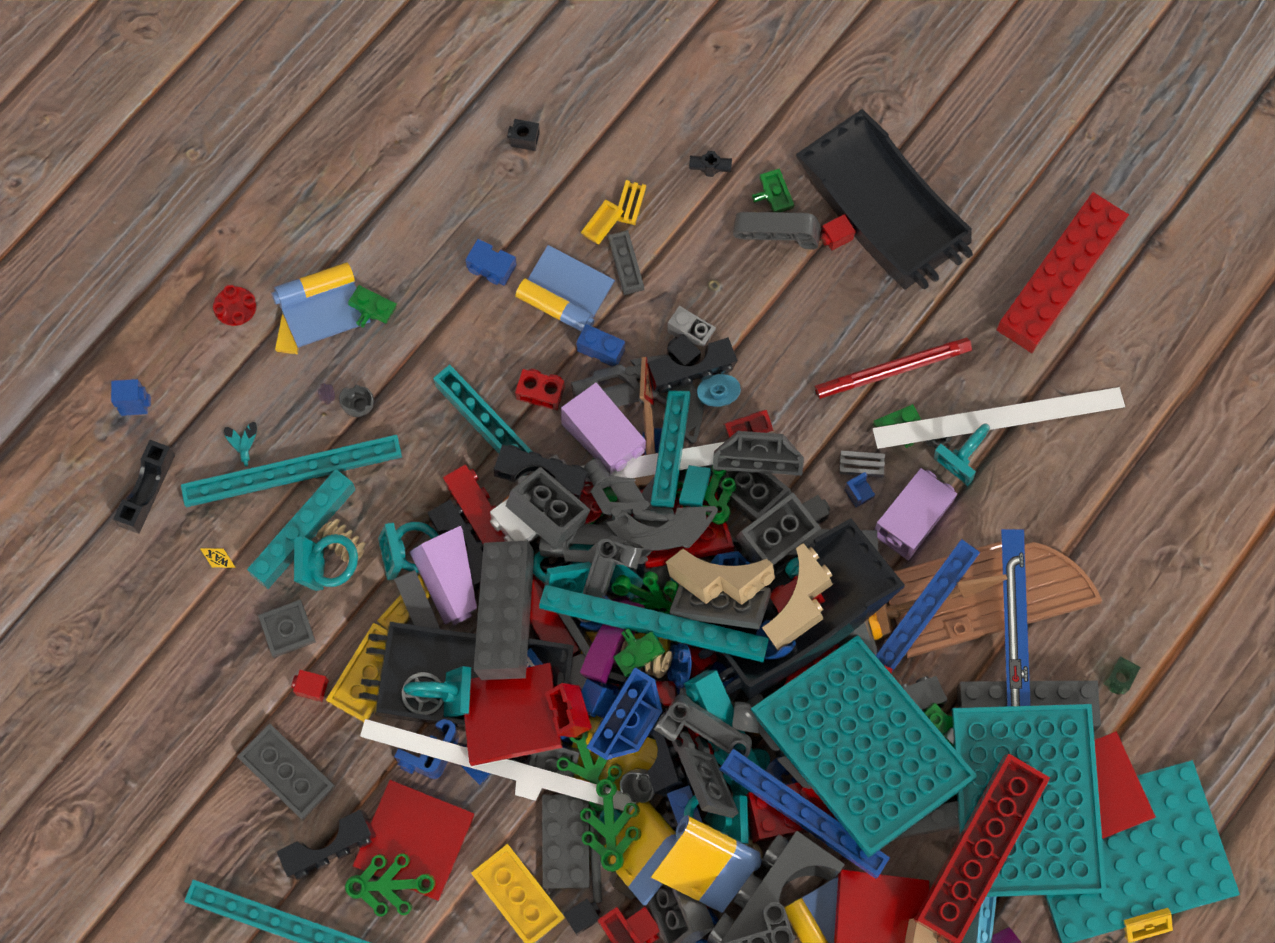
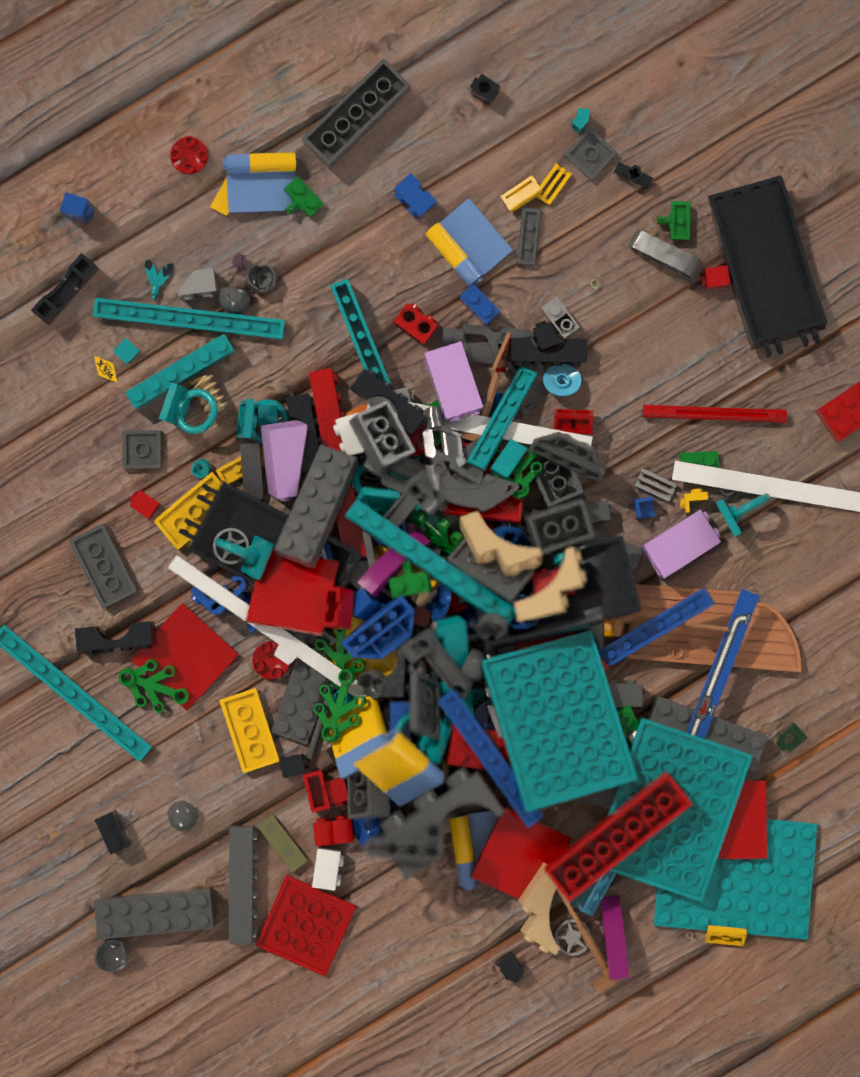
camera: 25 degrees right, 15 degrees up
(234, 530) = (126, 351): none -> teal tile
(290, 431) = (199, 283): none -> light grey slope
(334, 433) = (234, 300): none -> dark grey helmet
(360, 624) = (201, 468): none -> teal tile
(398, 202) = (356, 114): none -> dark grey brick
(412, 535) = (267, 413): none -> teal tile
(512, 810) = (266, 663): none -> red dish
(635, 129) = (581, 120): none -> teal piece
(657, 160) = (590, 154): none -> dark grey tile
(747, 662) = (491, 625): none -> dark grey hair
(908, 458) = (695, 495): none -> yellow bracket

